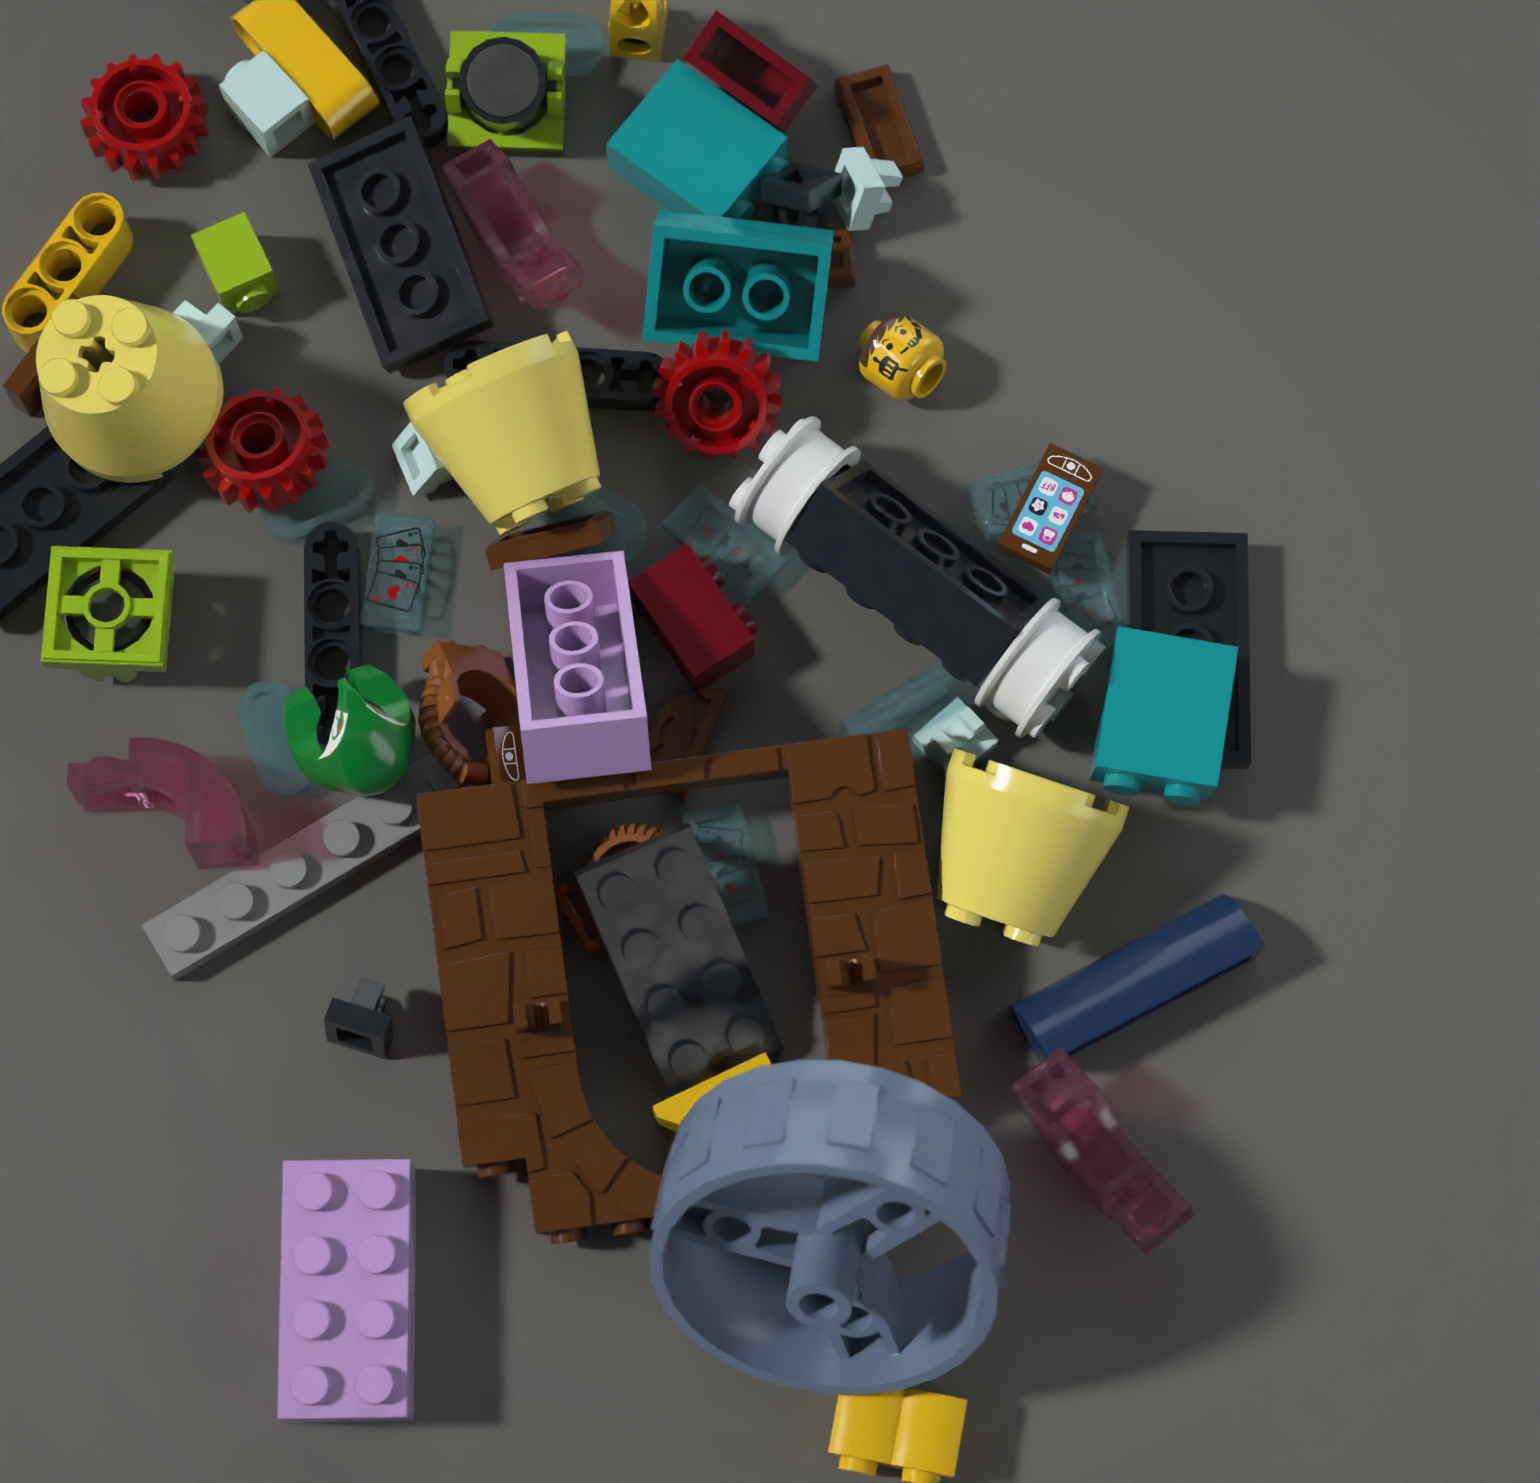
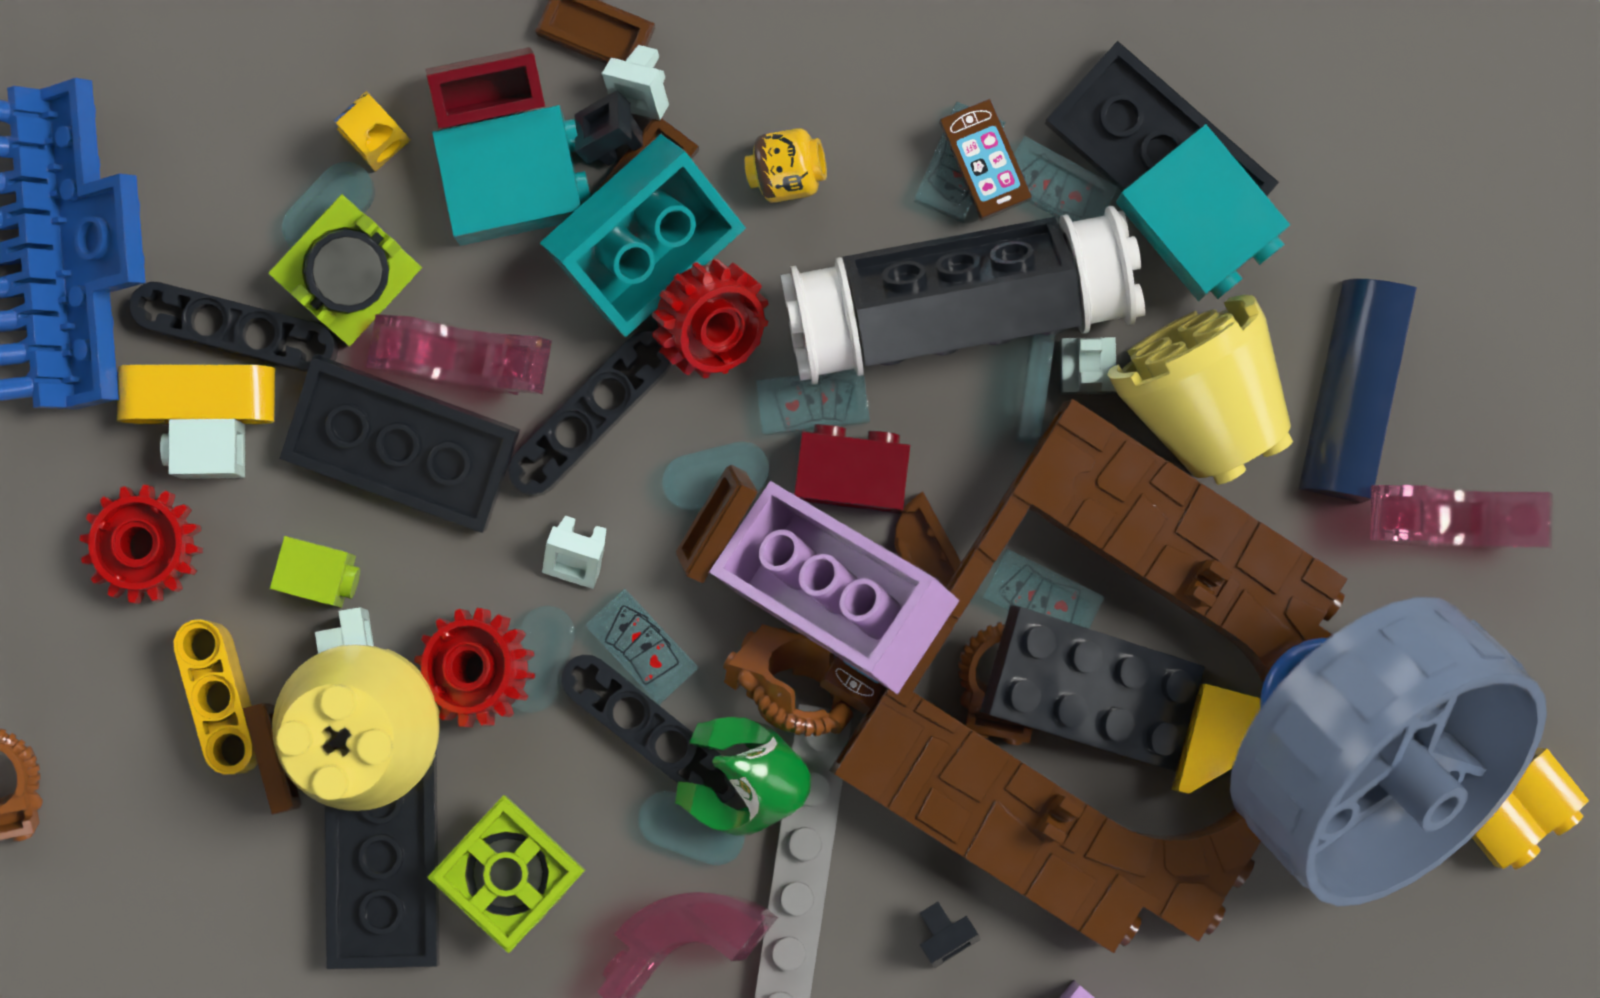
camera: 45 degrees left, 10 degrees up
(514, 430) = (625, 486): light yellow cone -> none

